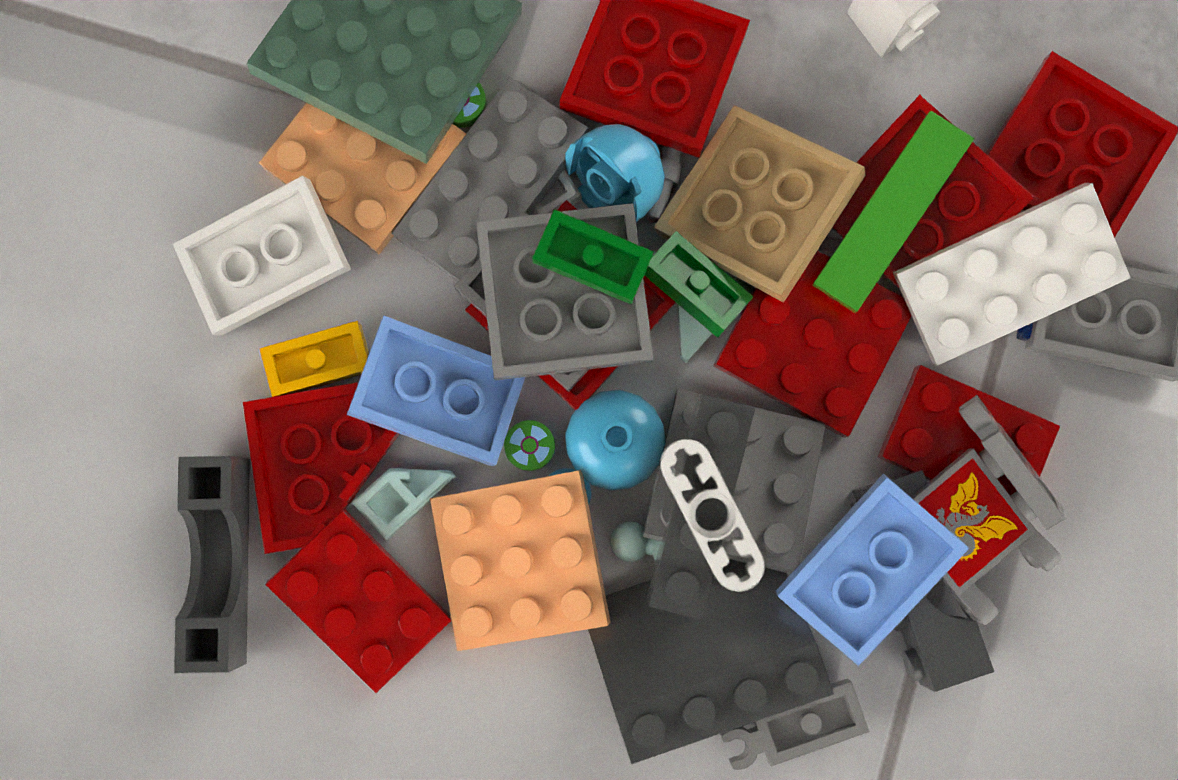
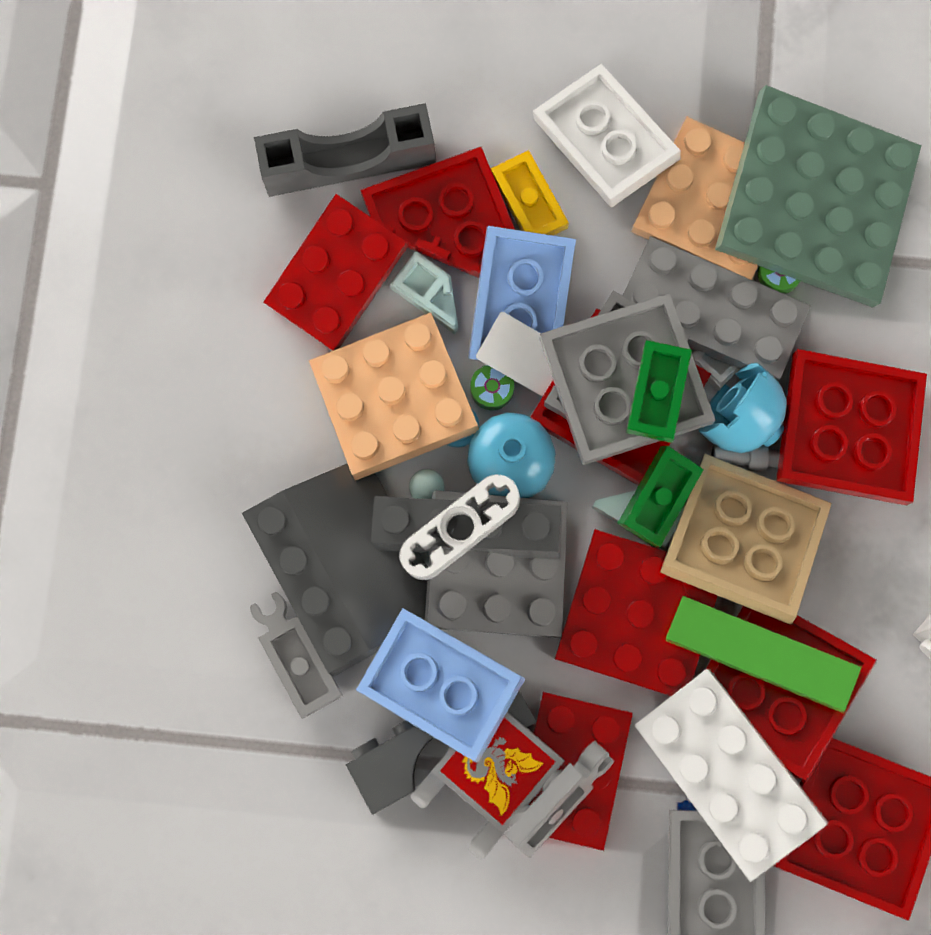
camera: 85 degrees right, 5 degrees down
(500, 409) = (516, 353): none -> white sticker

